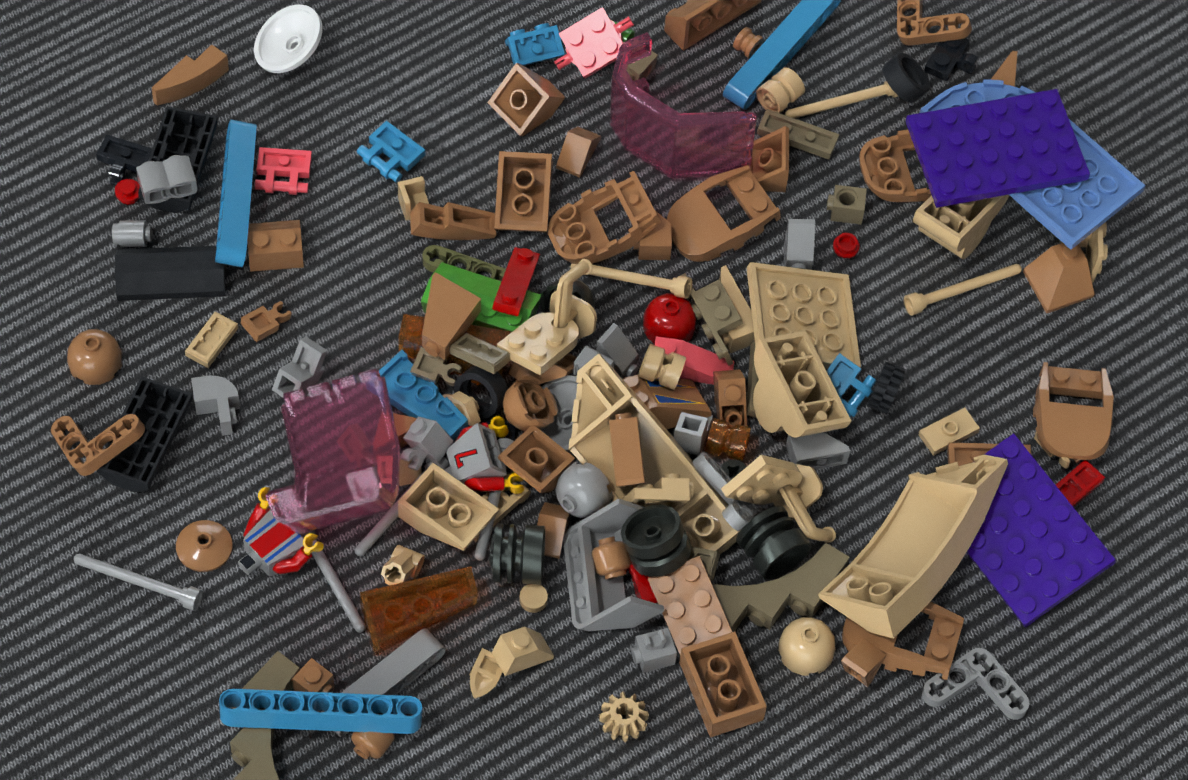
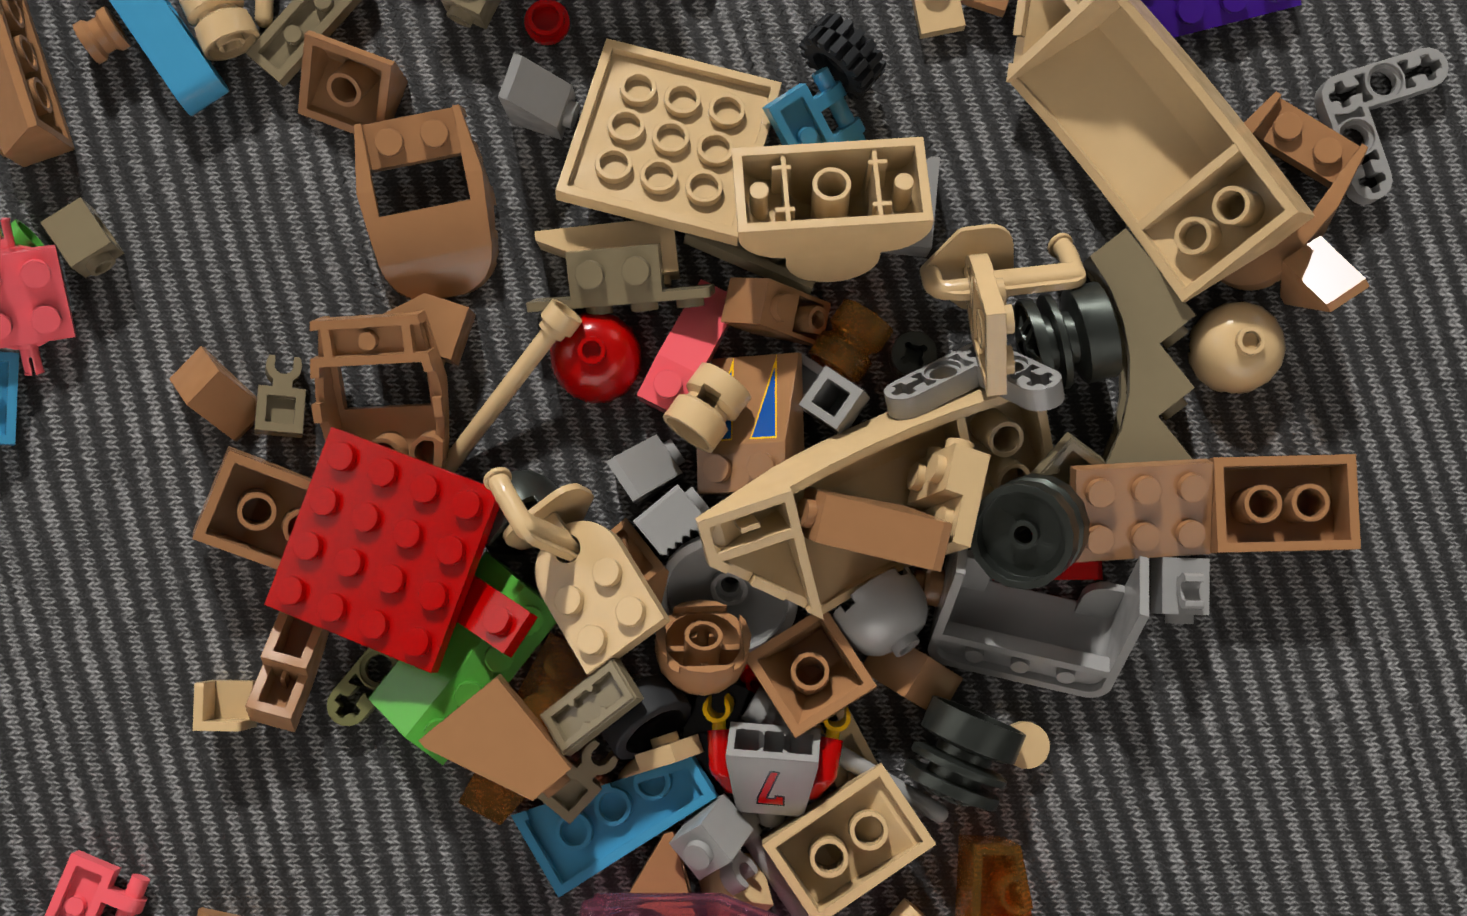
camera: 65 degrees left, 25 degrees up
(396, 146) = (107, 701): dark azure plate -> none
(484, 674) = (1144, 868): tan plate -> none
(521, 650) = (1125, 795): tan slope -> none
(525, 99) = (89, 450): medium nougat slope -> none
(525, 238) = (384, 550): none -> red plate
(584, 178) = (280, 406): none -> dark tan plate
(611, 558) = (1007, 608): medium nougat head -> none
(634, 714) = (1271, 691): tan gear -> none
(670, 140) = (257, 254): clear pink windscreen -> none

